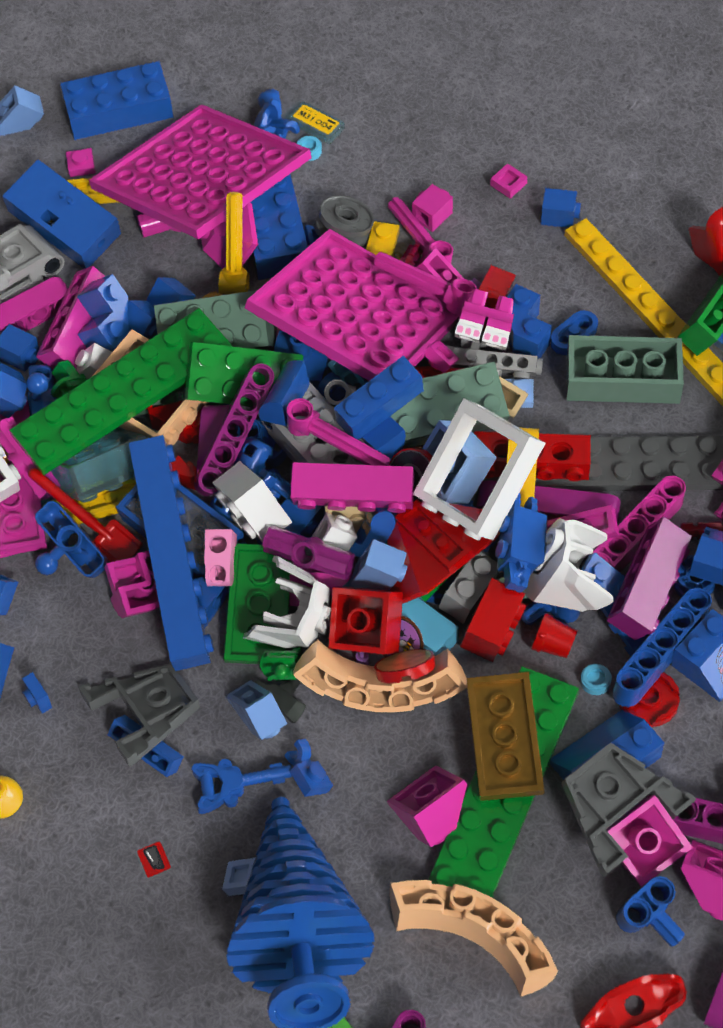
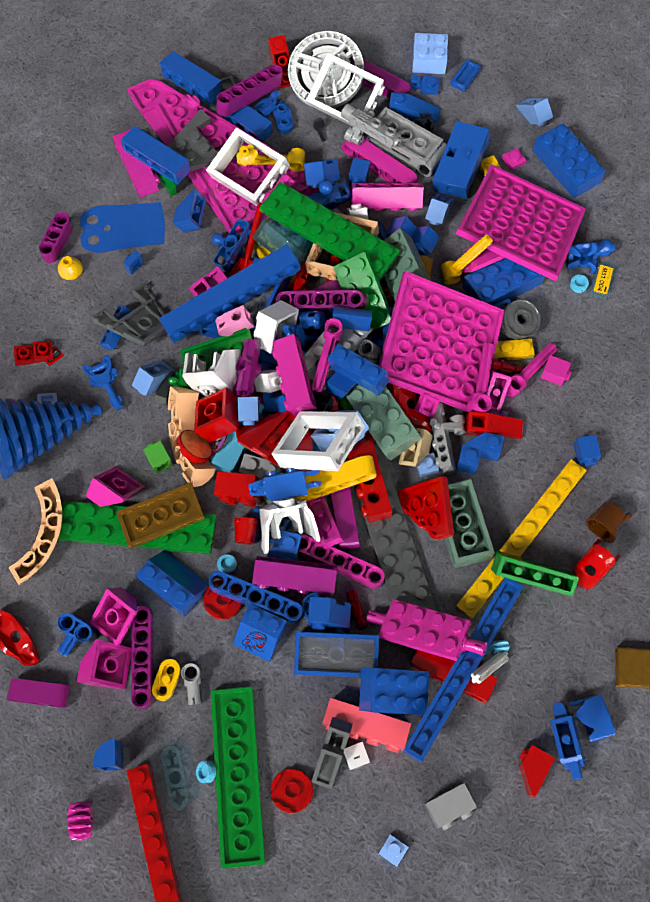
camera: 70 degrees right, 10 degrees up
(67, 378) = (340, 206): green piece -> none
(108, 307) = (386, 212): blue brick -> none
(126, 265) = (439, 209): none -> medium blue slope
(140, 886) = (36, 353): none -> red slope
(307, 774) = (118, 418): blue plate -> none
(396, 731) = (157, 457): none -> bright green brick
(474, 316) = (457, 423): hips -> none
(508, 181) = (599, 412): dark pink plate -> none
(572, 327) = (486, 485): blue plate -> none
(595, 392) = (429, 507): none -> red plate
(607, 790) = (132, 582): dark grey wing -> none
(666, 215) = (606, 521): none -> reddish brown hat

